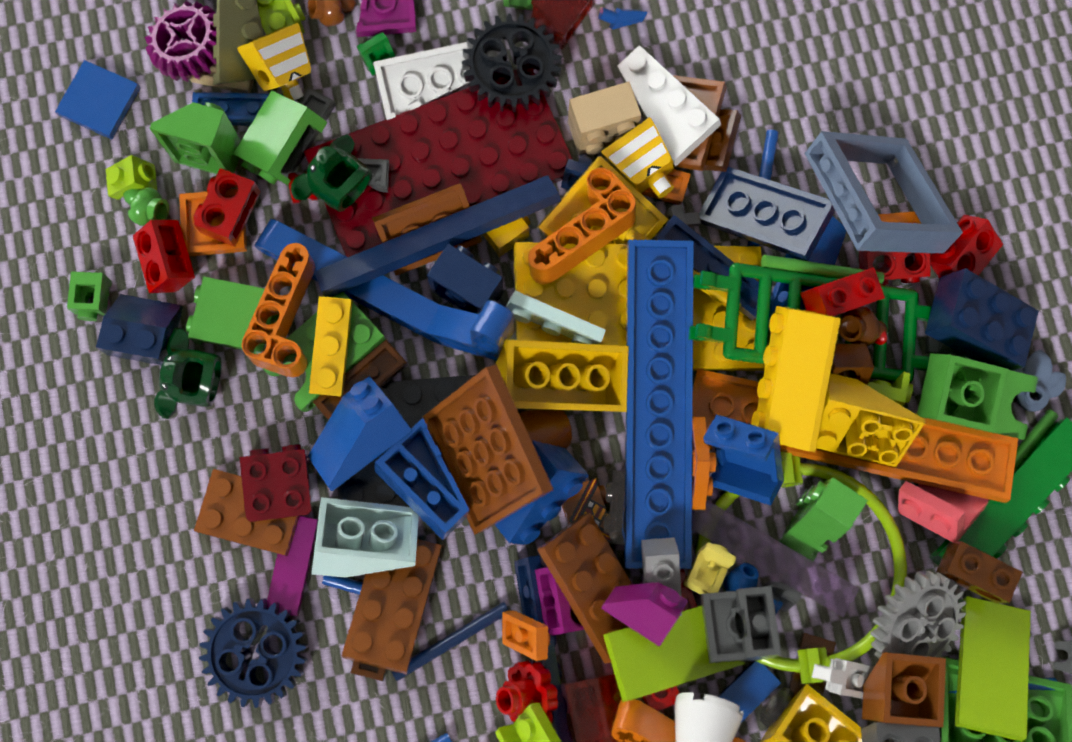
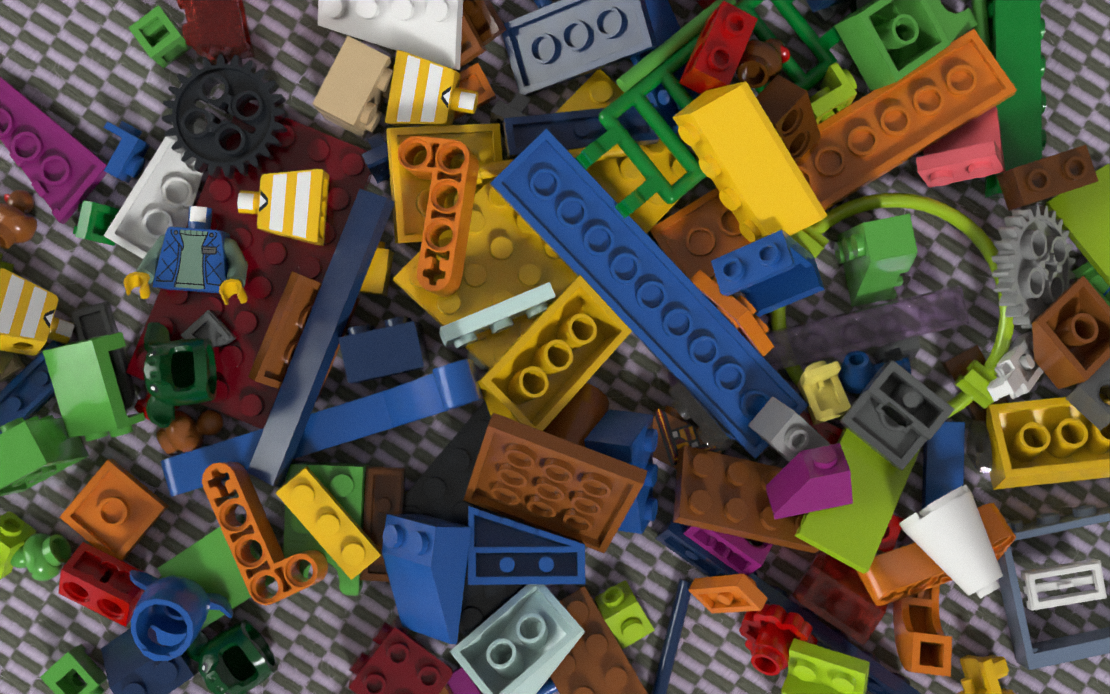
camera: 50 degrees left, 10 degrees up
(188, 305) = (174, 610): none -> blue piece
(235, 209) = (123, 486): red brick -> none
(300, 217) = (186, 434): none -> dark orange animal
(408, 123) = (193, 261): none -> torso
(434, 33) = (128, 157): none -> blue bracket
(447, 588) = (623, 614): none -> lime bracket
(498, 146) = (290, 204): none -> yellow torso
(865, 423) = (842, 144): yellow slope -> none

